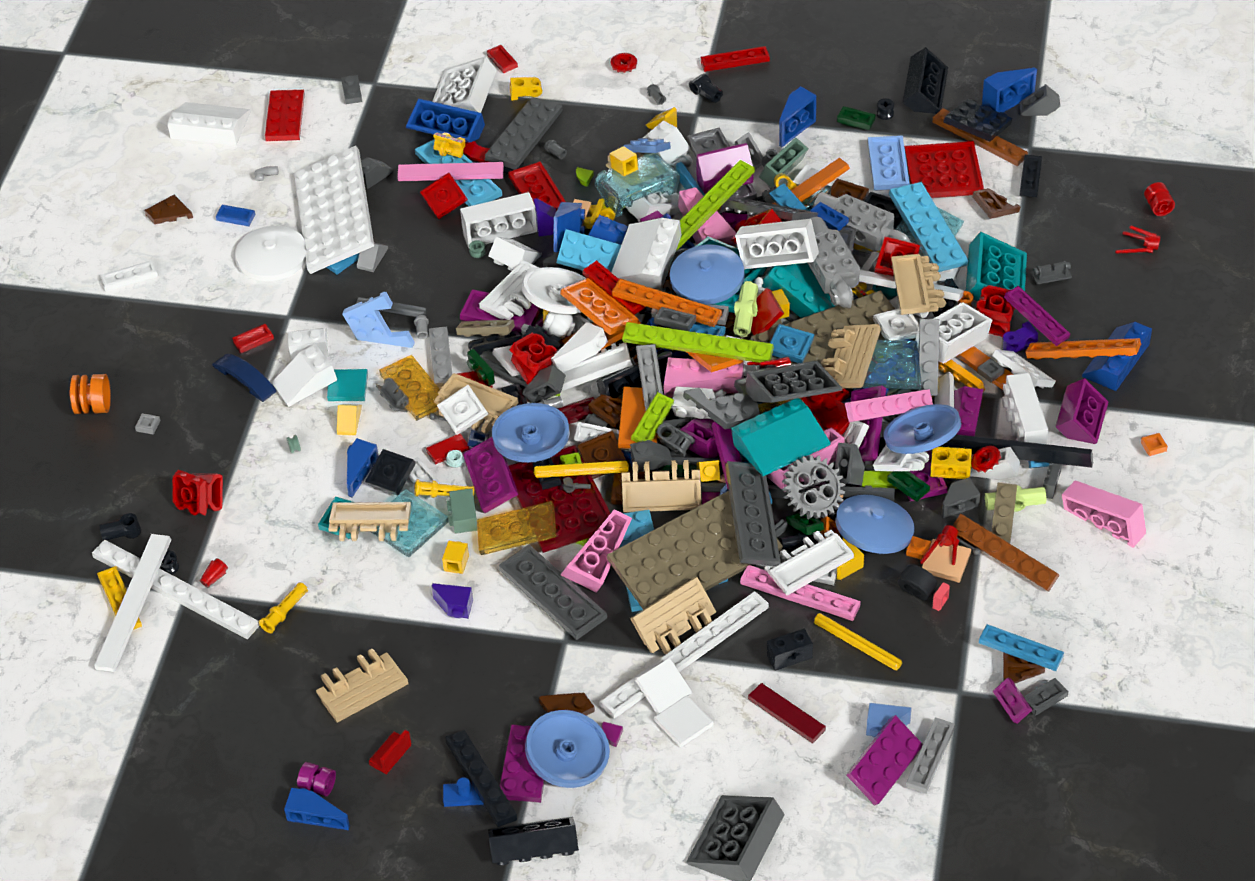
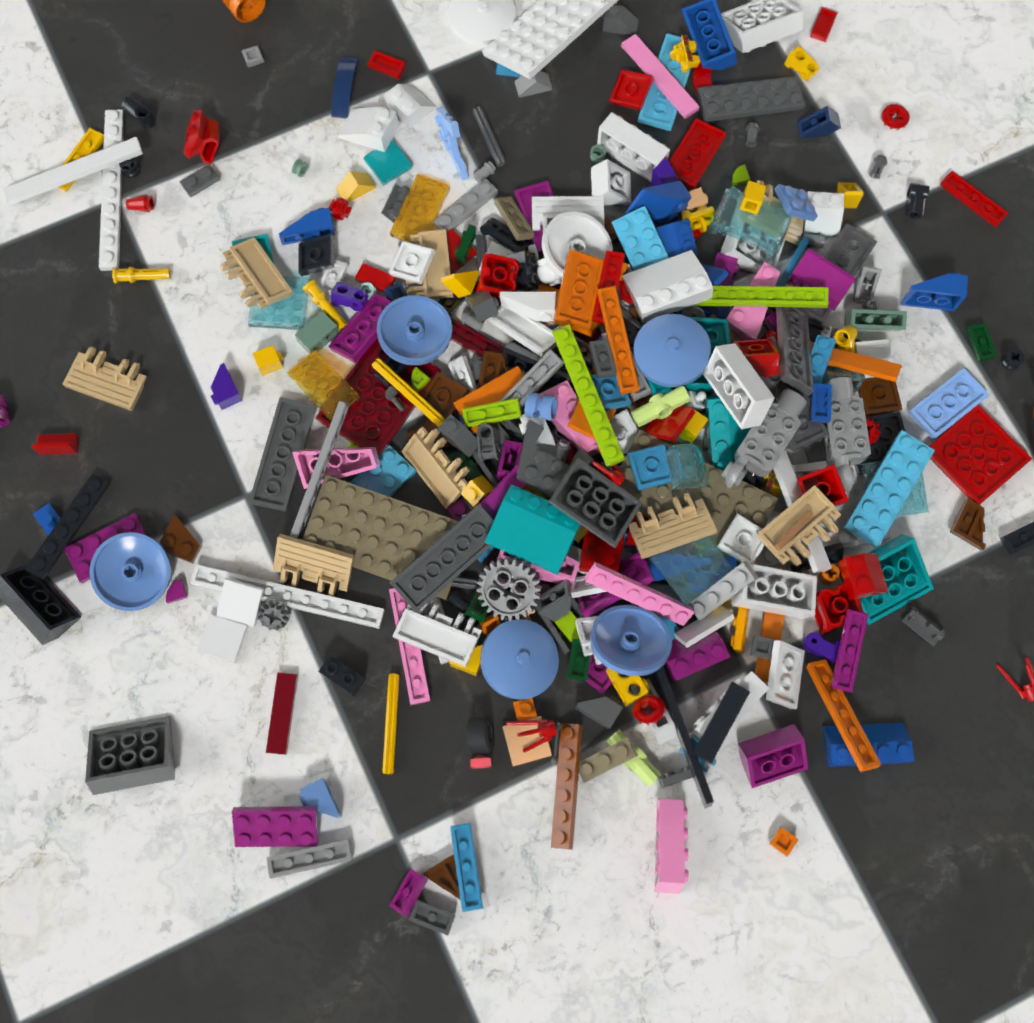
camera: 50 degrees right, 25 degrees up
(232, 521) = (199, 180): none -> dark grey plate
(362, 432) = (340, 208): none -> red gear
(451, 469) = (348, 296): none -> dark purple leg
(516, 385) = (461, 283): none -> yellow slope
(586, 105) = (819, 123): none -> dark blue slope
(600, 552) = (319, 469): none -> light grey tile
(678, 379) = (541, 406): none -> medium blue wheel
(688, 665) = (281, 612): none -> dark grey gear
(810, 319) = (686, 466): none -> clear light blue slope
(917, 285) = (794, 529): none -> medium nougat piece
(985, 274) = (862, 576): none -> red slope
(1033, 412) = (721, 722): none -> black tile

